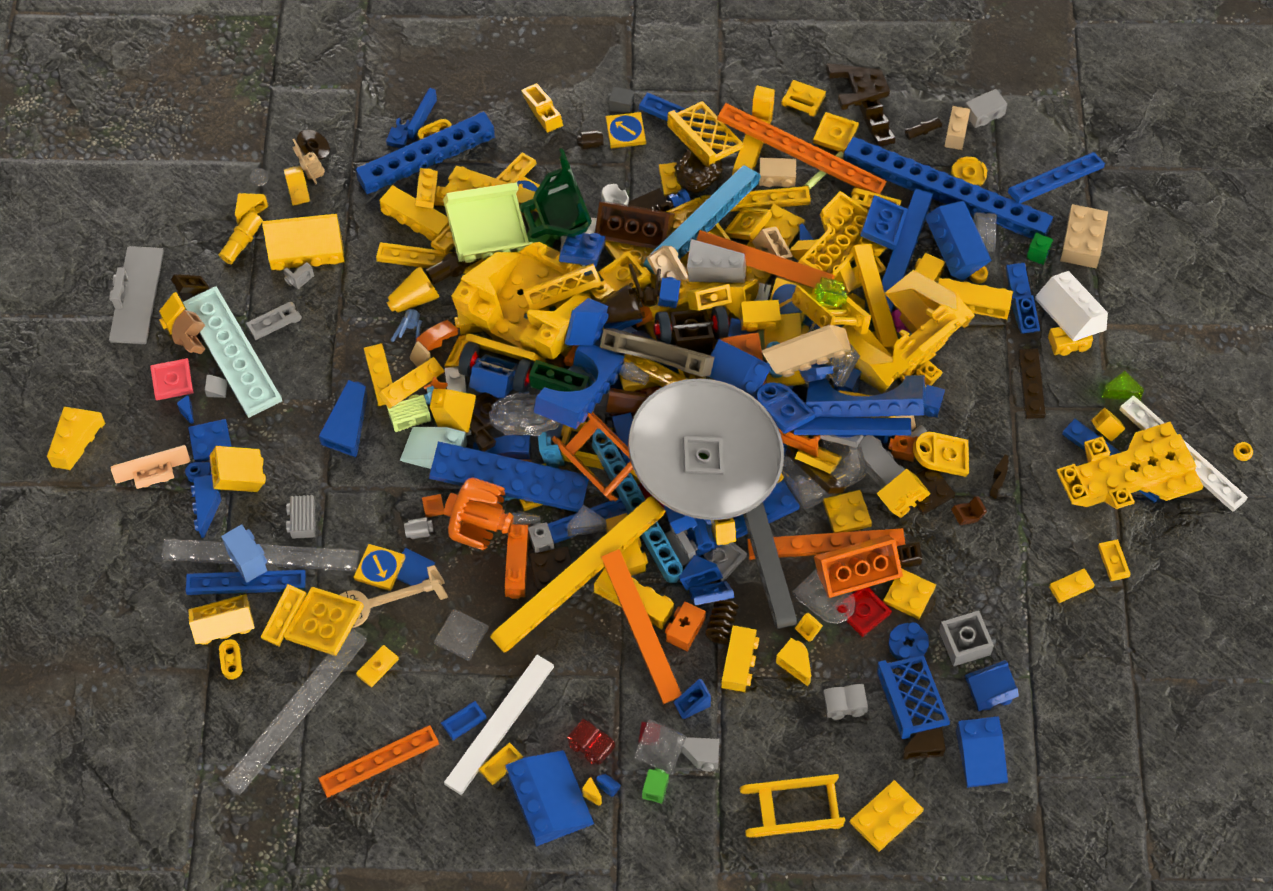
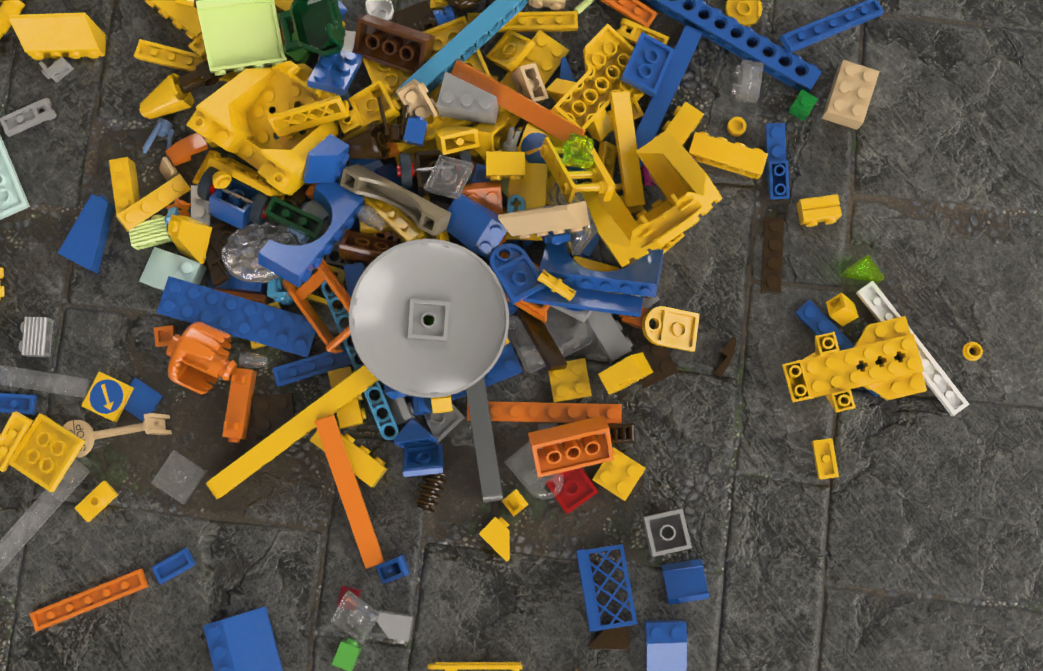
camera: 10 degrees right, 20 degrees up
(418, 528) = (148, 359): light grey brick -> none
(482, 350) = (221, 179): none -> yellow plate
(495, 767) = (204, 614): yellow tile -> none
(498, 725) = (206, 573): white tile -> none
(540, 537) = (265, 382): light grey brick -> none
(586, 522) = (308, 372): clear slope -> none
(591, 742) = (290, 603): clear red brick -> none
(591, 792) = (286, 656): yellow slope -> none
(607, 784) = (303, 646): blue slope -> none
(684, 636) = (394, 501): orange brick -> none
(707, 327) = (449, 177): none -> clear plate
(740, 659) = (443, 530): yellow brick -> none
(825, 412) = (556, 285): none -> yellow pin
(825, 461) = (552, 329): yellow slope -> none
(845, 701) = (540, 584): light grey brick -> none
(912, 632) = (601, 520): blue plate -> none
(933, 400) = (670, 267): blue brick -> none
(958, 239) = (720, 89): blue slope -> none
(969, 512) = (689, 393): reddish brown bracket -> none
(1071, 585) = (779, 480): yellow plate -> none
(1072, 306) = (825, 178): white slope -> none

